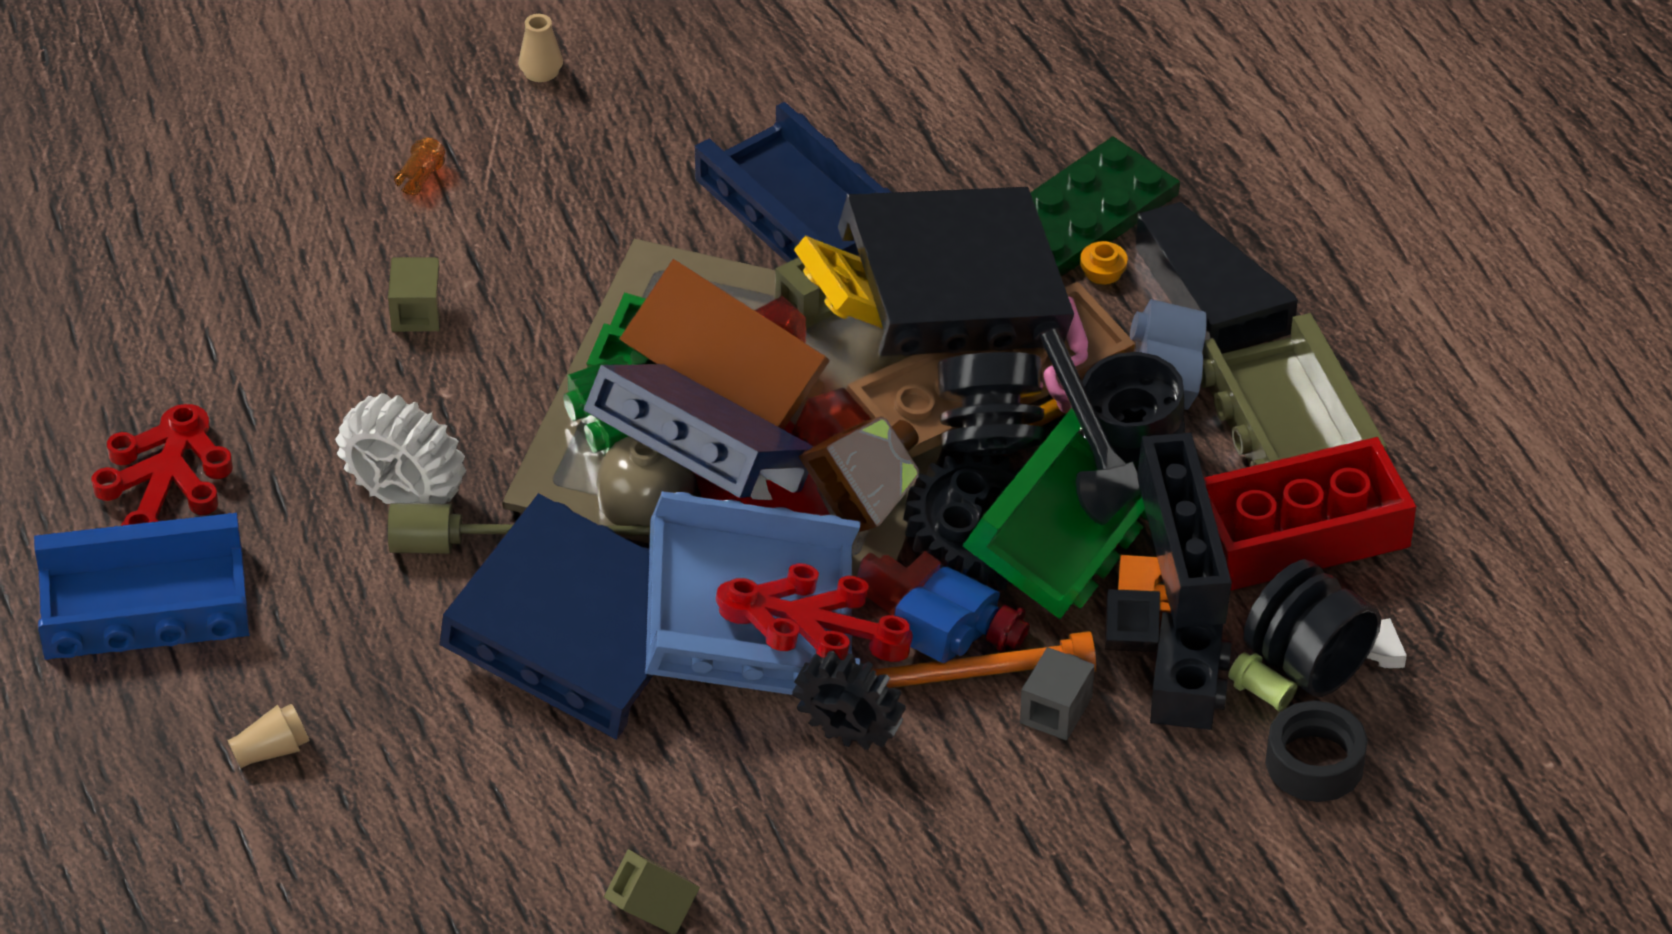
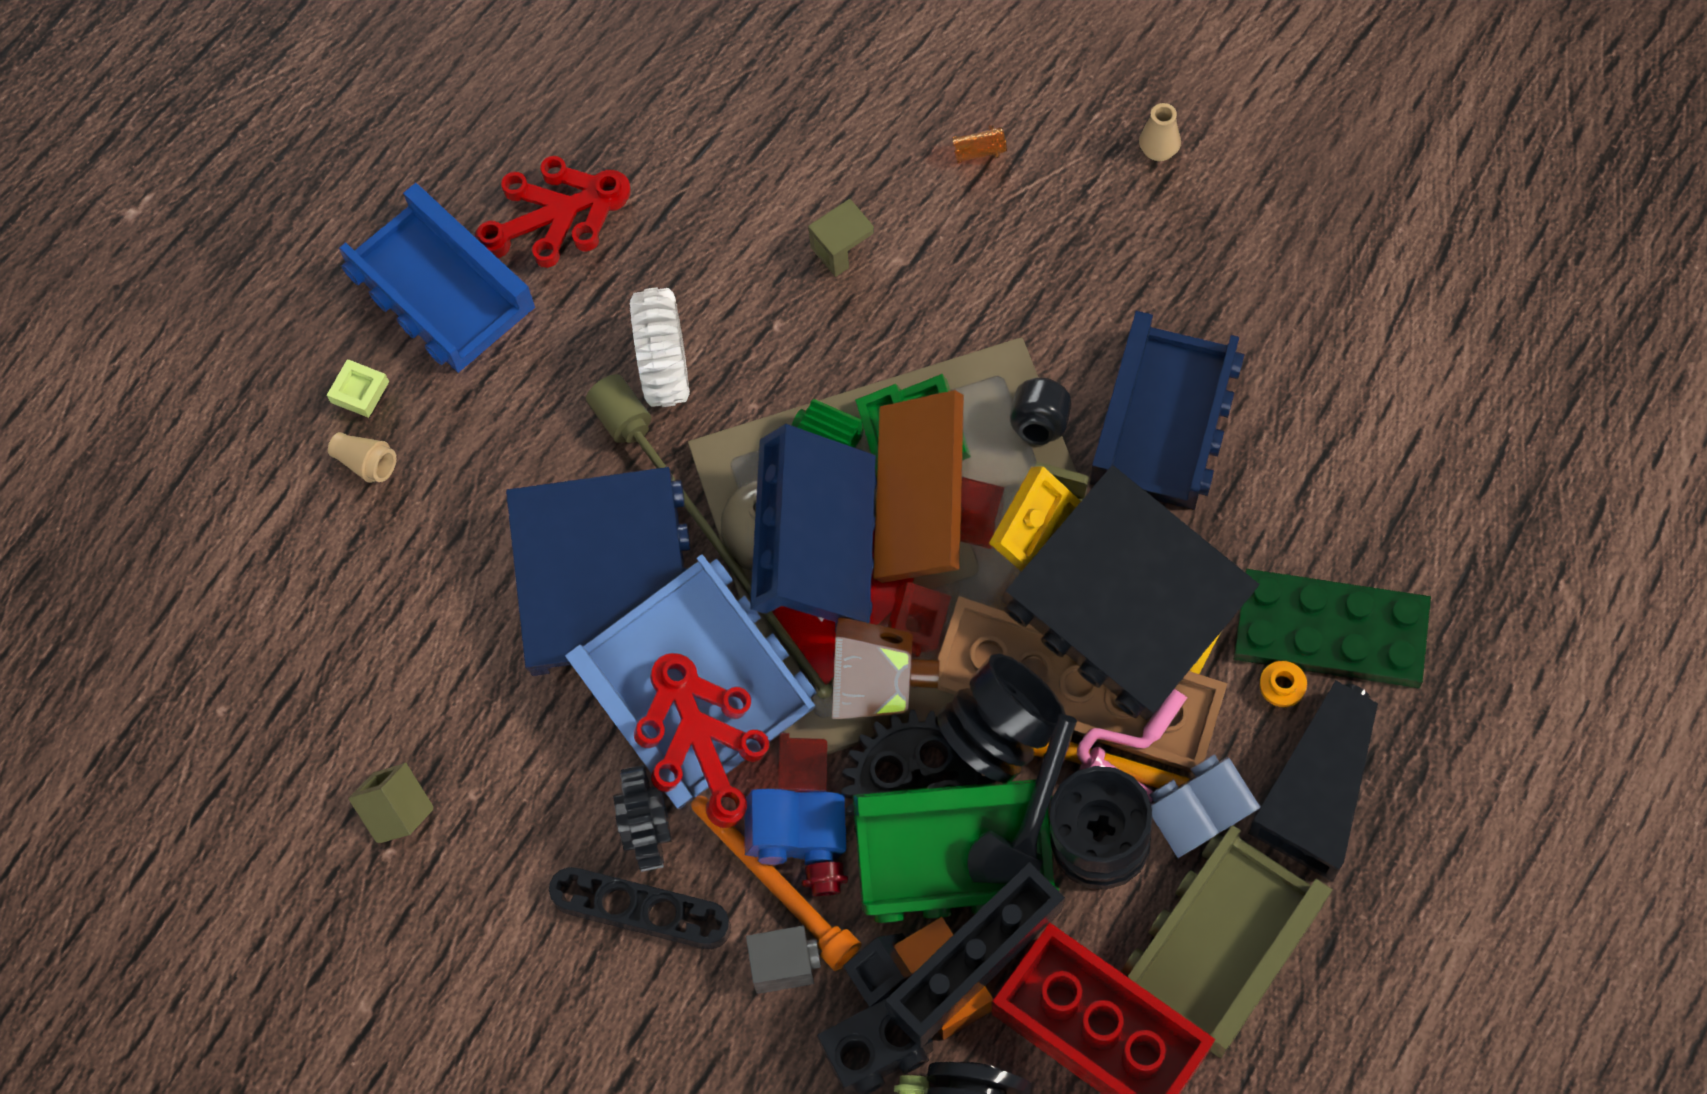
camera: 60 degrees right, 20 degrees up
(194, 705) = (358, 388): none -> yellowish green plate
(724, 252) = (1040, 411): none -> black head
(911, 765) = (641, 902): none -> black beam

